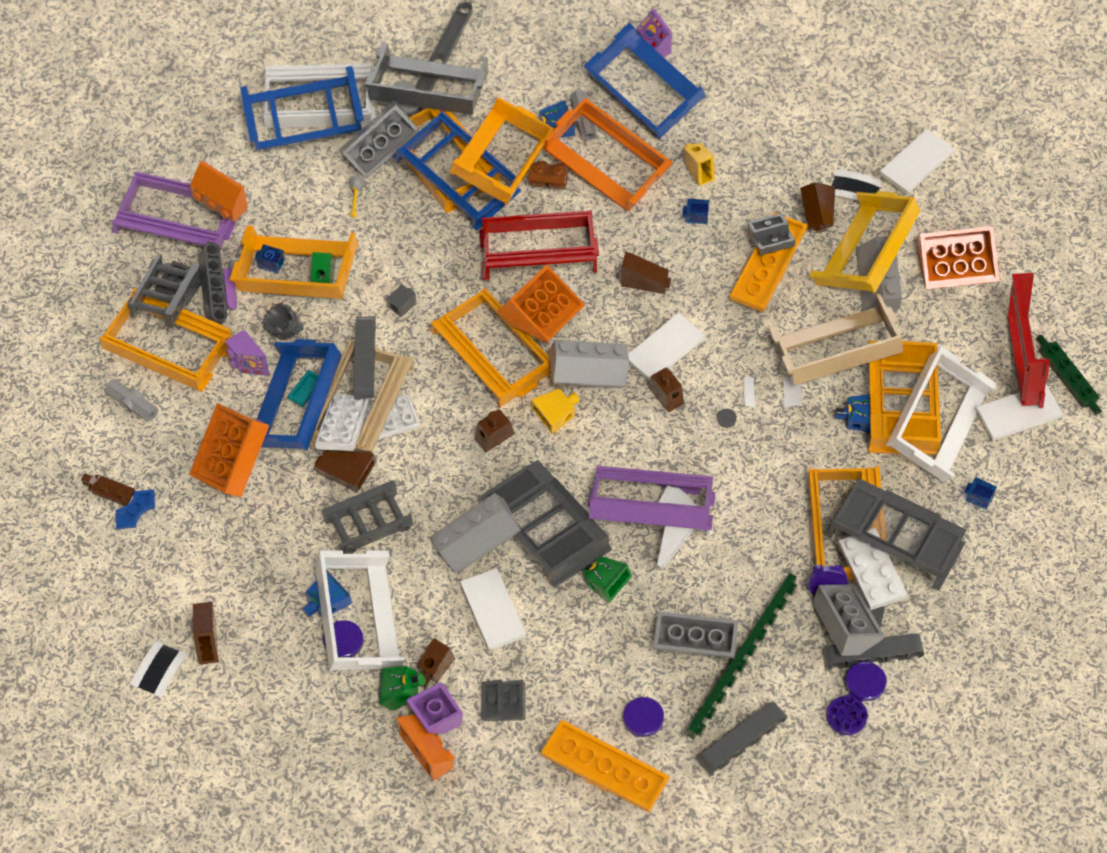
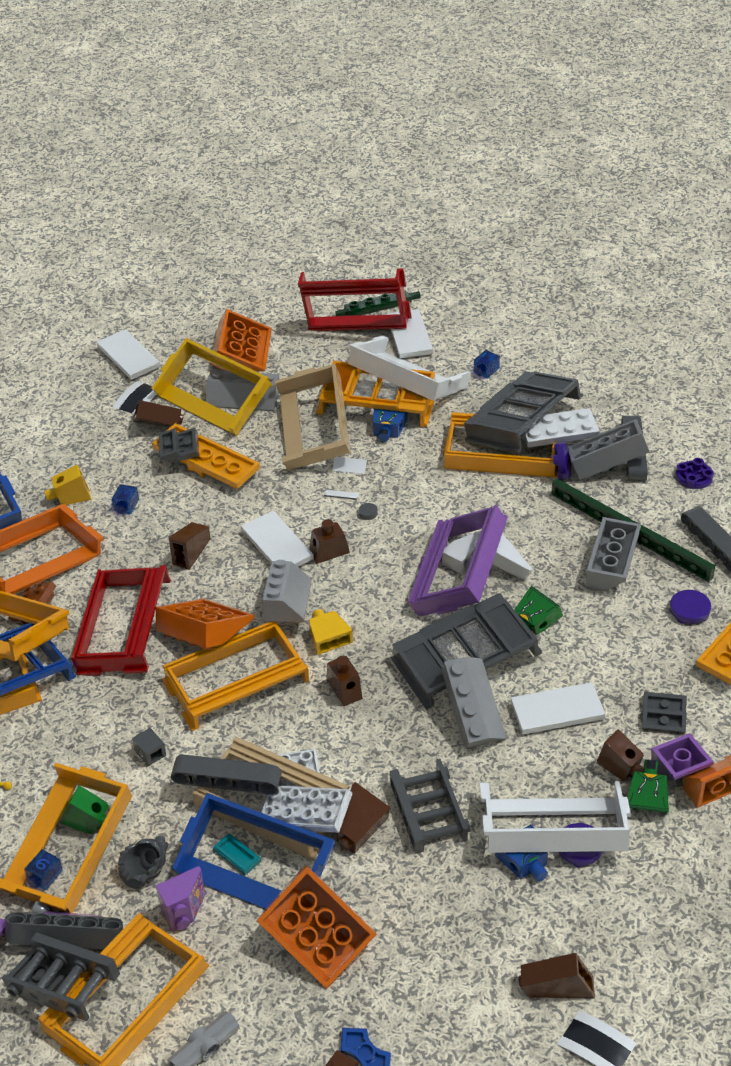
camera: 80 degrees left, 15 degrees down
(866, 681) = (663, 456): dark purple tile -> none

